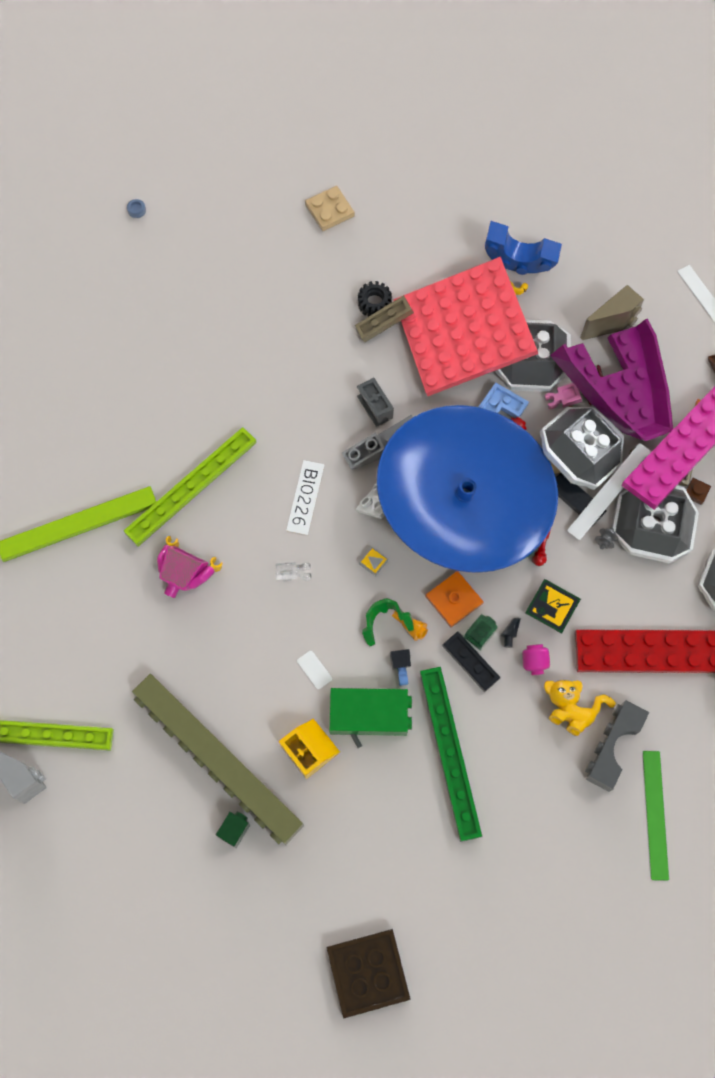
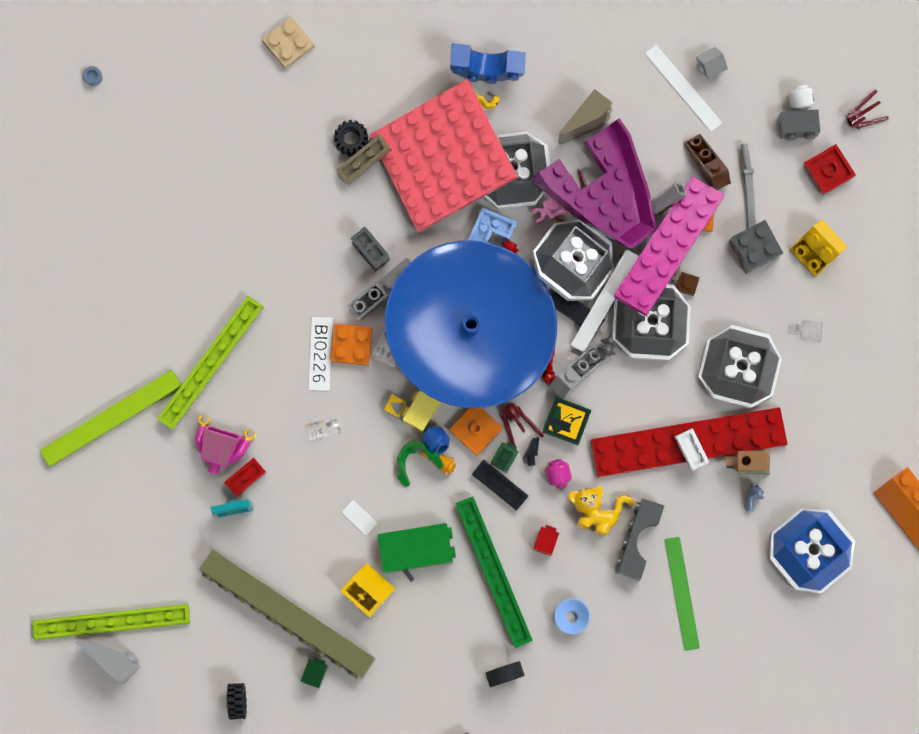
camera: 10 degrees left, 10 degrees up
(140, 844) = (236, 701): none -> black tyre
(181, 633) = (232, 507): none -> teal plate
(202, 606) = (245, 477): none -> red plate
(339, 493) = (351, 344): none -> orange plate
(400, 568) = (420, 411): none -> light yellow brick
(401, 660) = (436, 497): black piece -> none
(410, 600) = (435, 439): none -> blue head
(445, 868) = (504, 674): none -> black tyre
(497, 589) = (513, 414): none -> dark red plant
(513, 728) = (546, 540): none -> red brick
(540, 811) = (579, 608): none -> light blue piece
(569, 558) = (576, 372): none -> light grey slope
(686, 658) = (692, 450): none -> white plate
(688, 401) = (668, 197): none -> light grey axle

